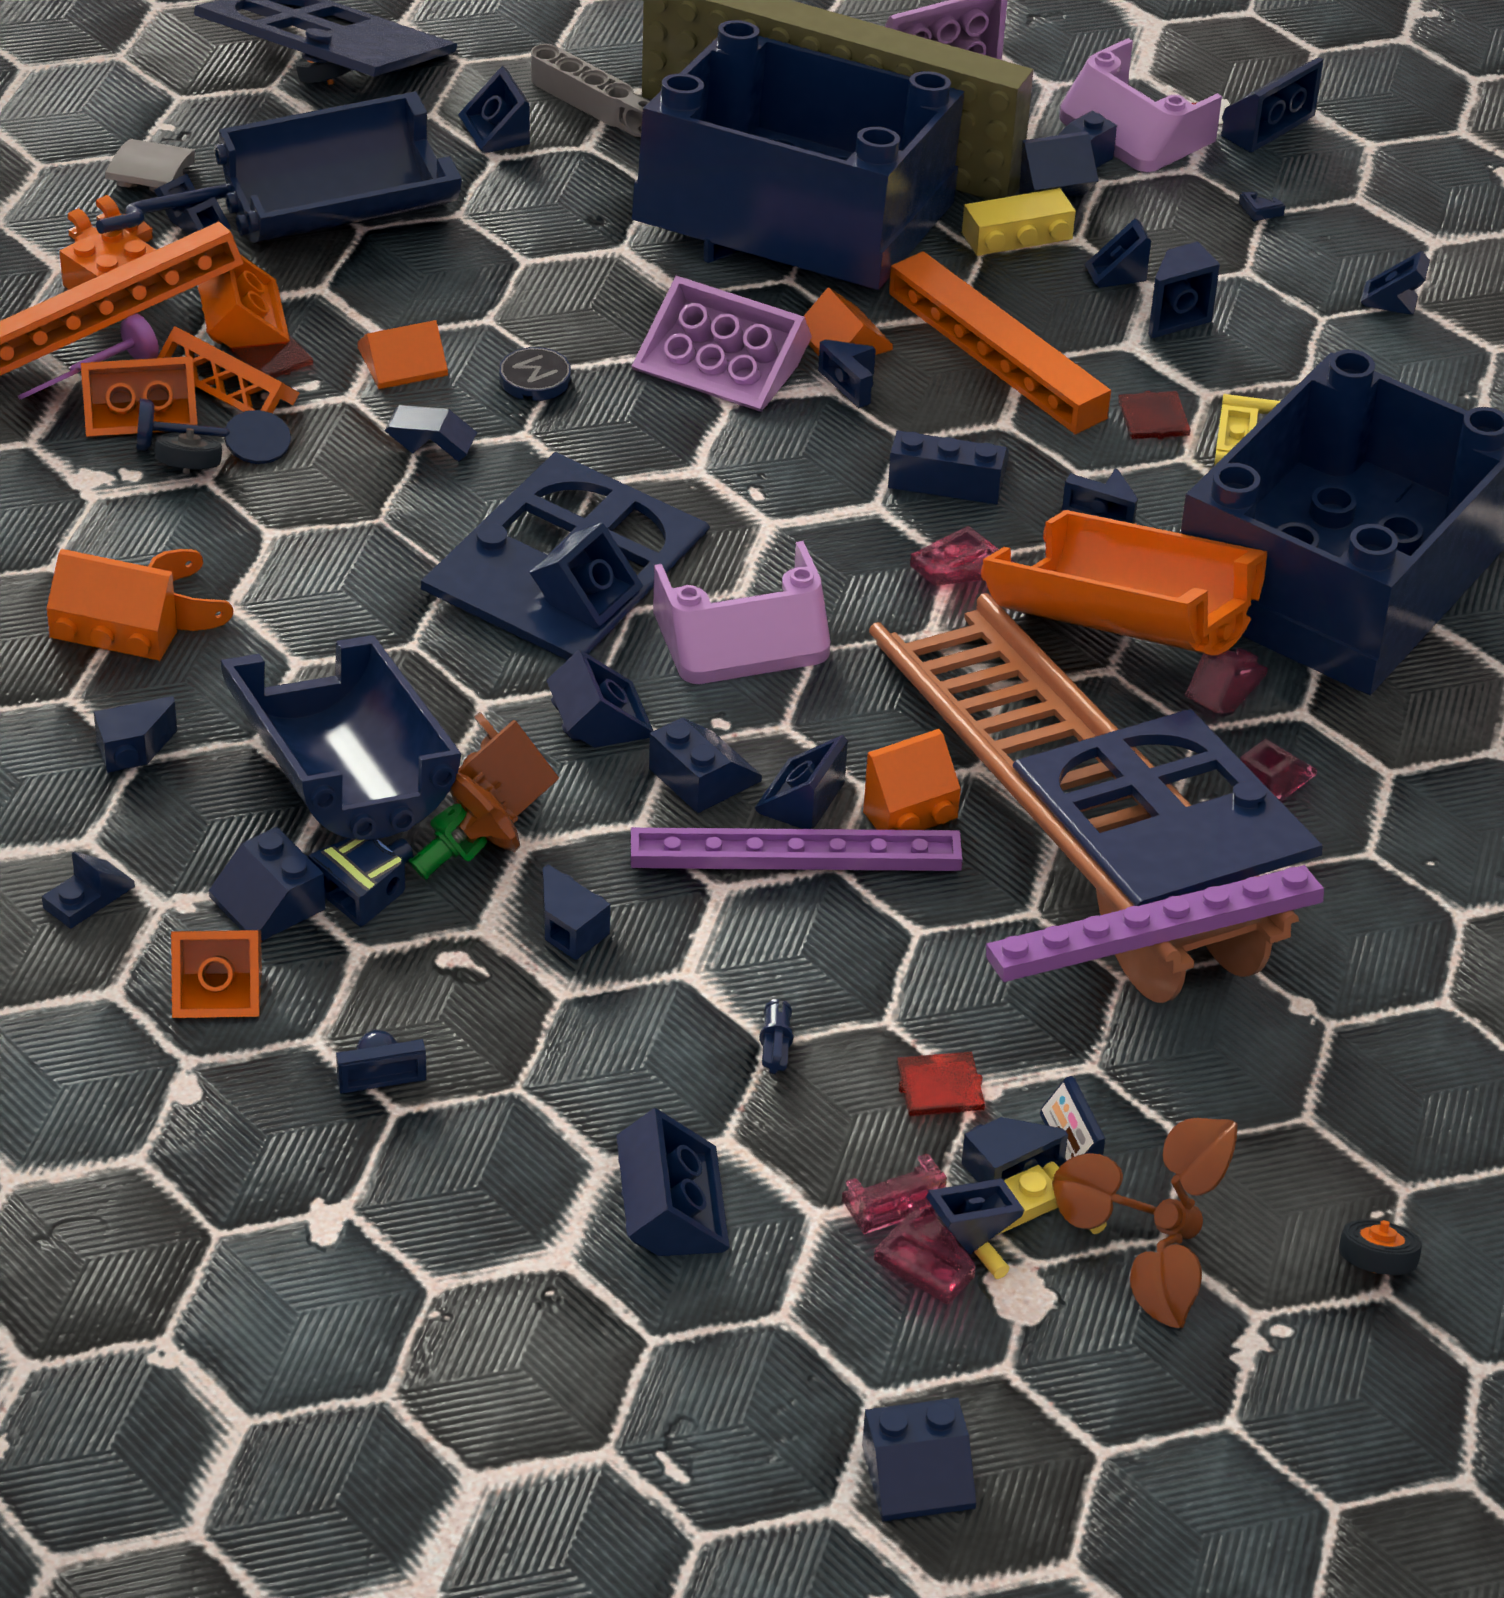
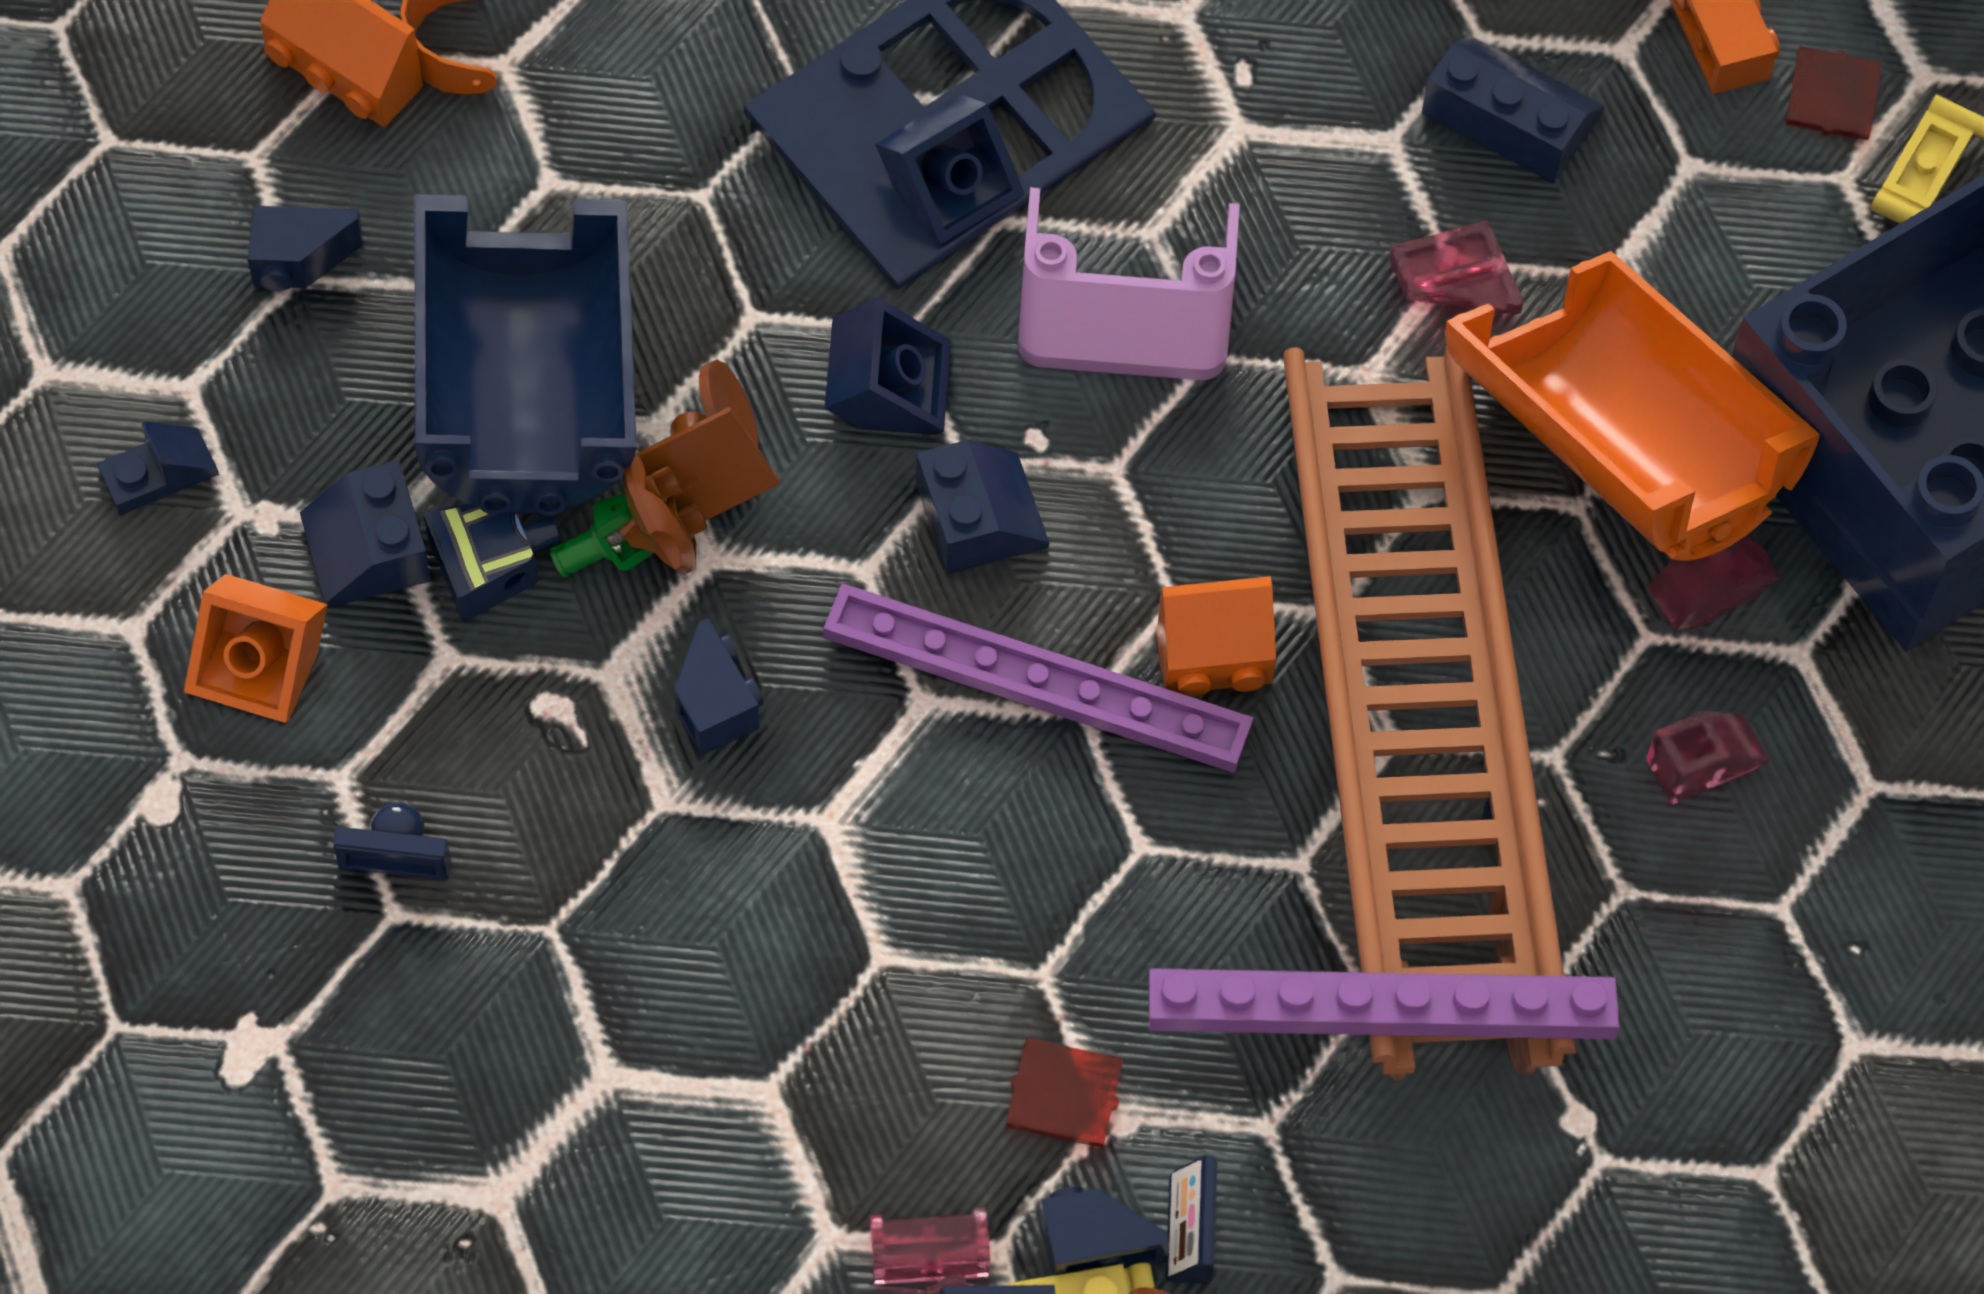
camera: 20 degrees right, 20 degrees up
(671, 1188) = (662, 1150): dark blue slope -> none
(776, 1036) = (887, 962): dark blue axle -> none
(806, 785) = (1092, 581): dark blue slope -> none
(1109, 500) = (1692, 234): dark blue slope -> none
(1179, 845) = (1498, 883): dark blue door -> none

